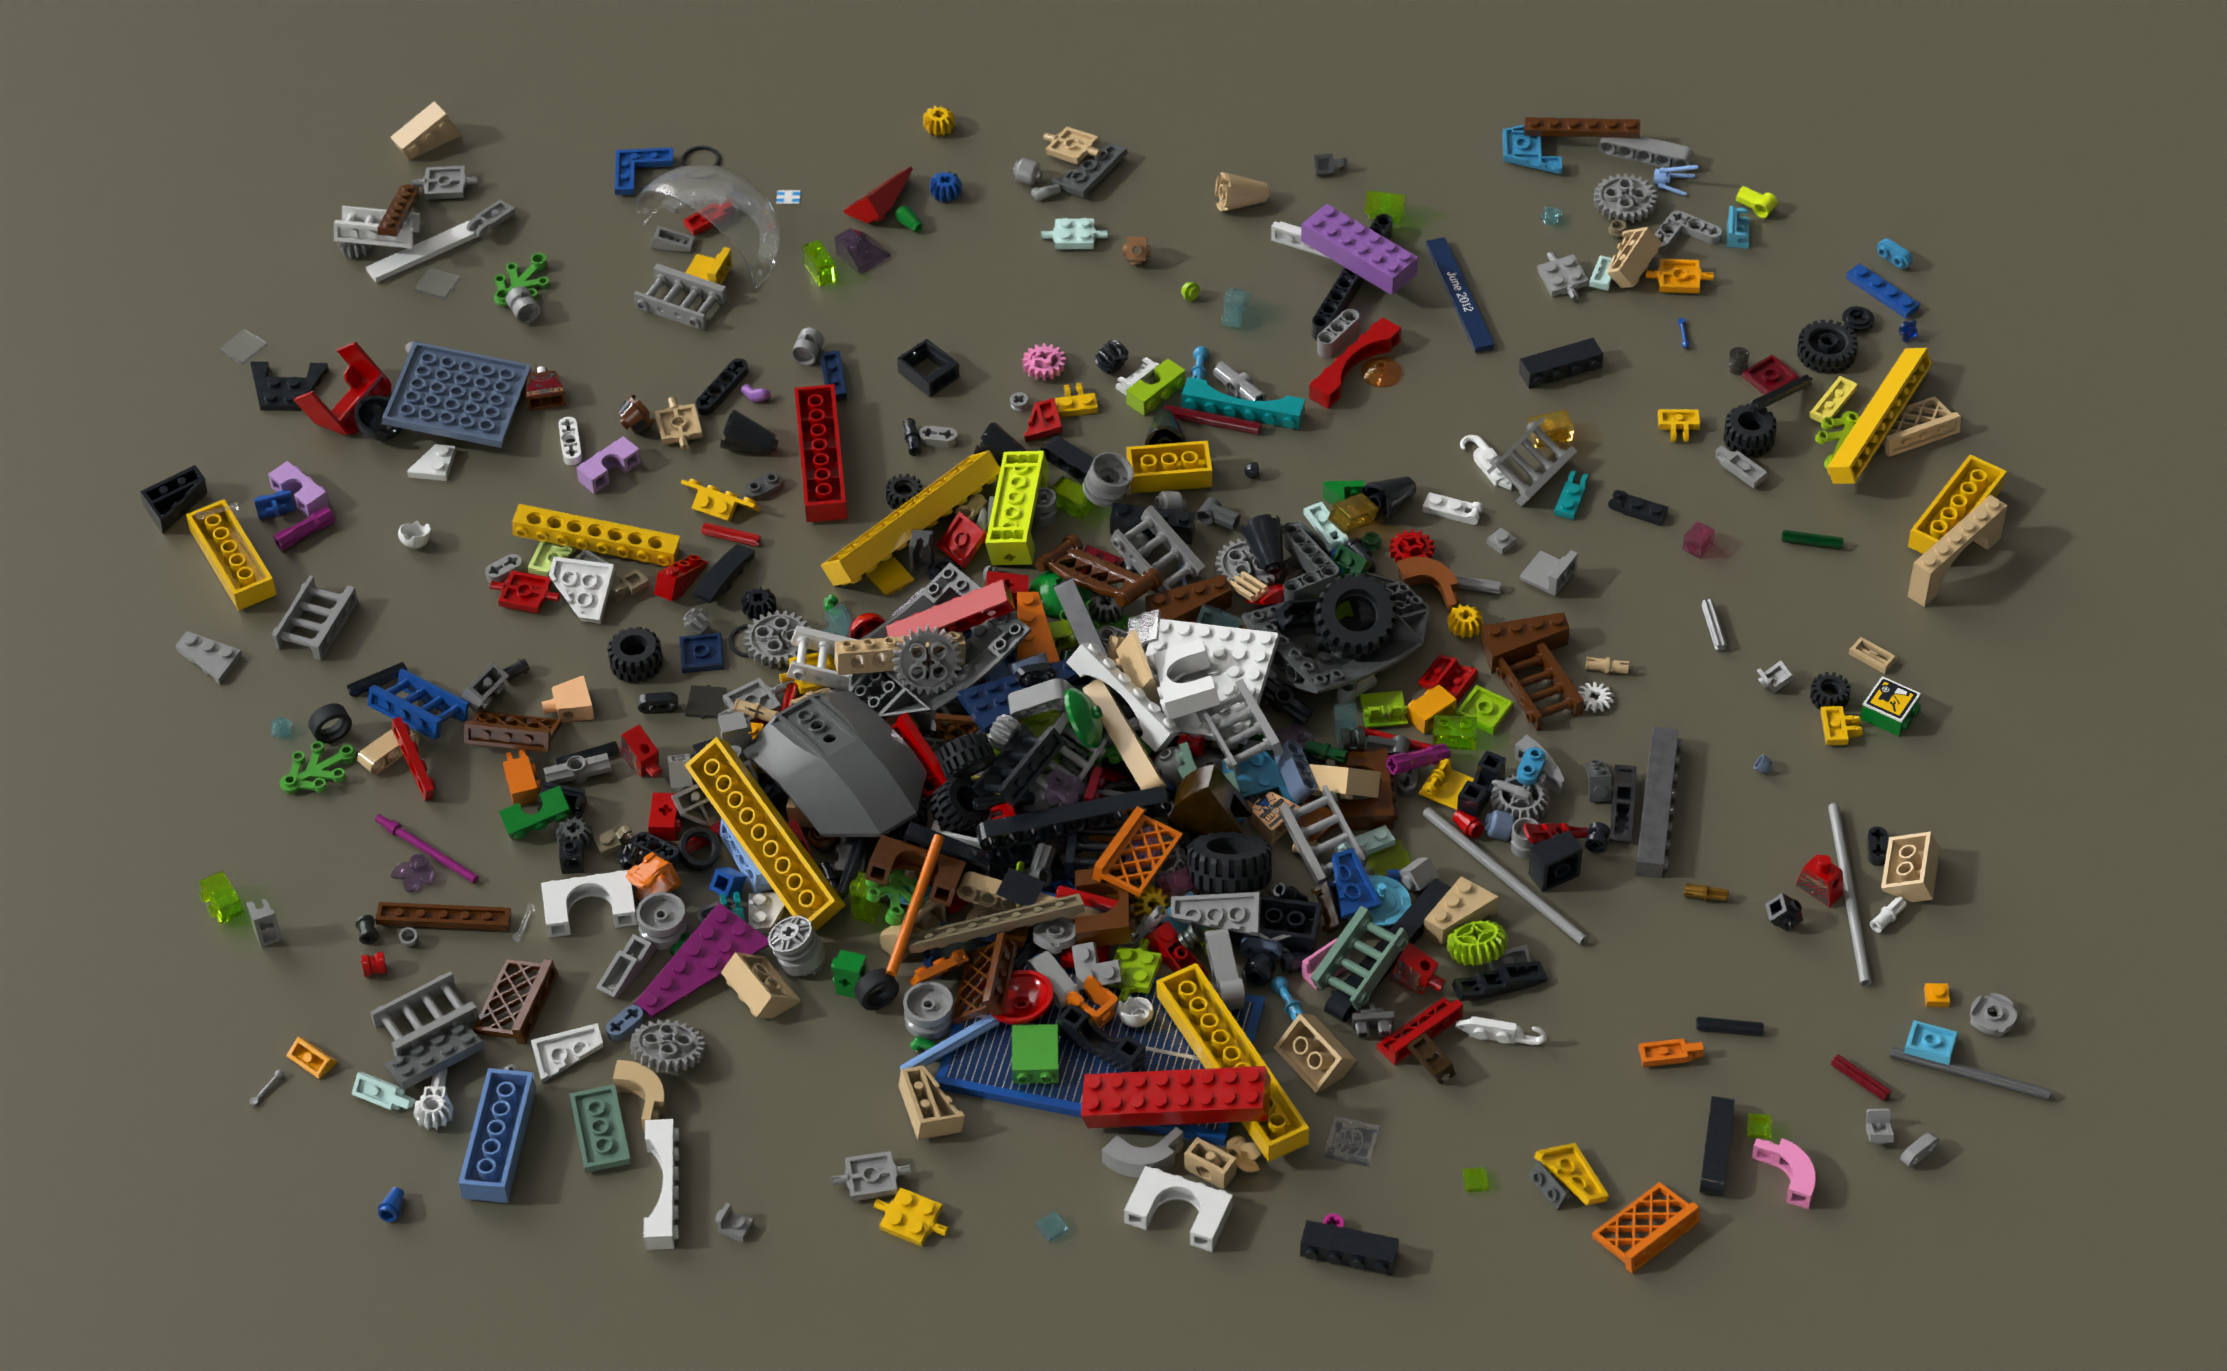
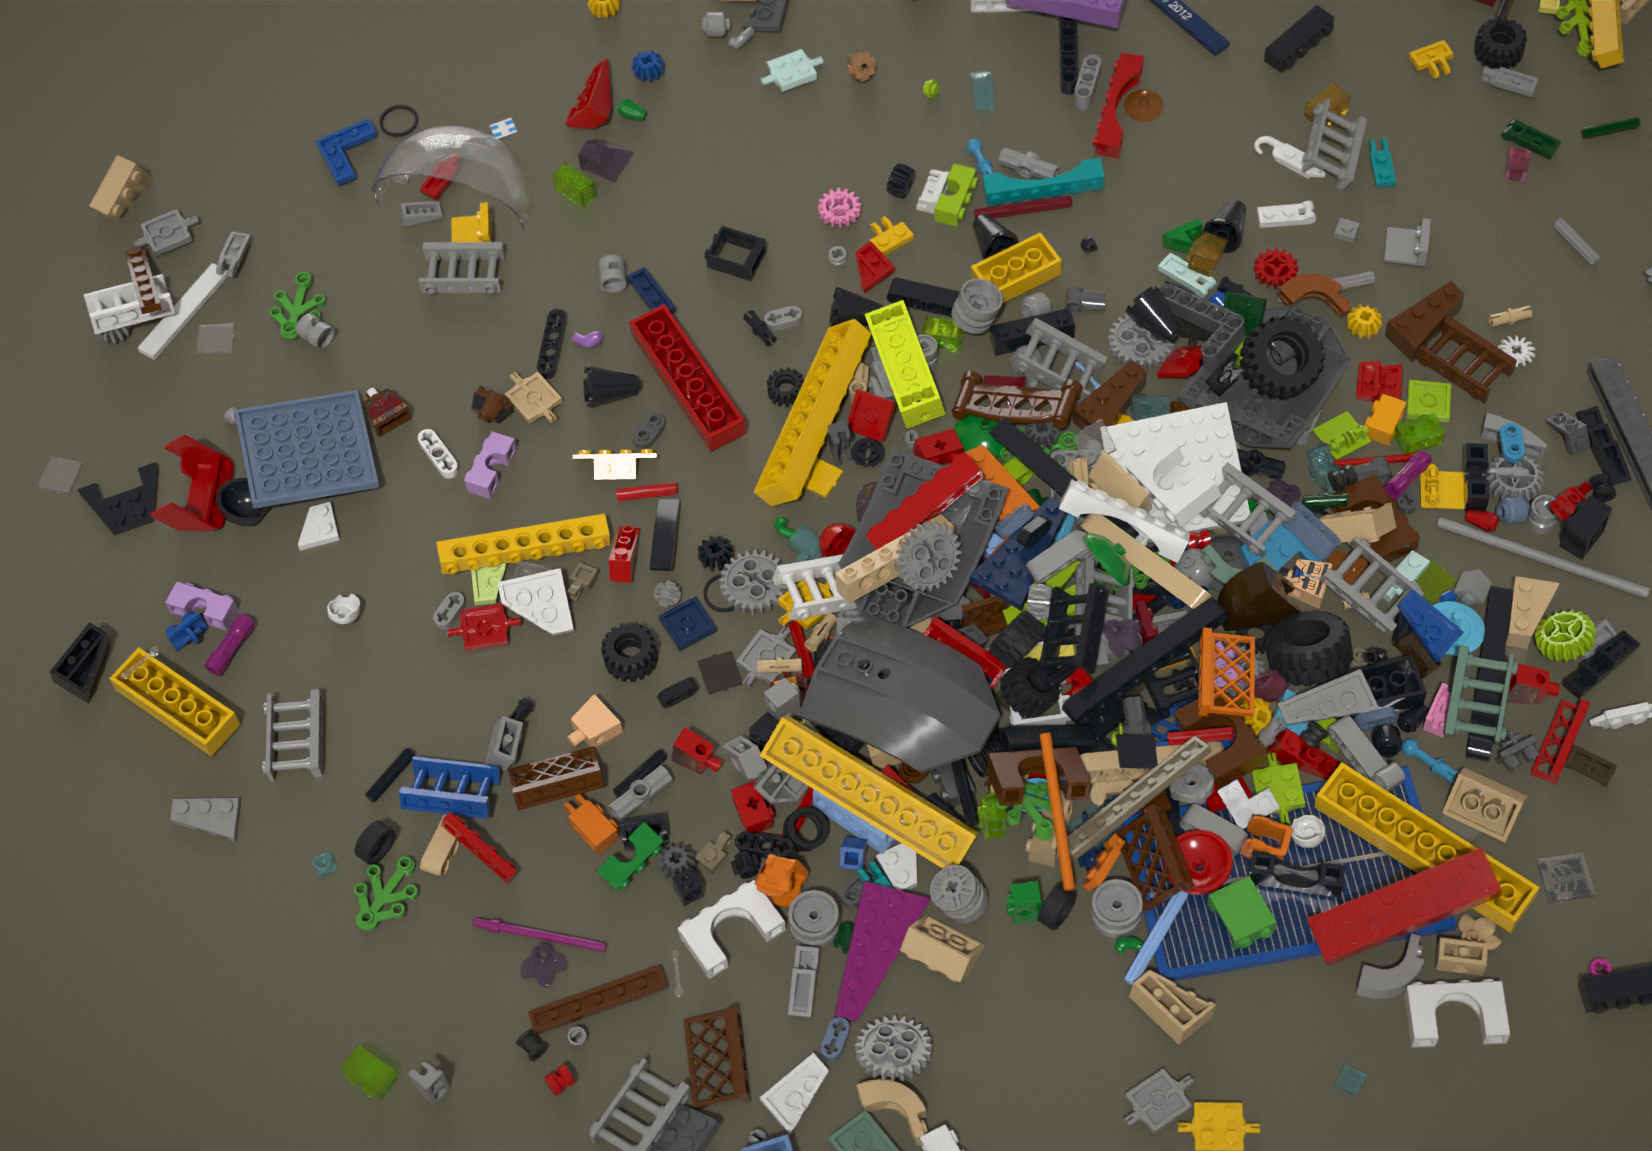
camera: 20 degrees left, 10 degrees up
(1251, 584) = (1162, 360): tan tile -> none
(1371, 541) = (1237, 271): clear green plate -> none
(1638, 507) = (1445, 153): black hinge -> none
(1728, 523) = (1531, 138): none -> dark green plate

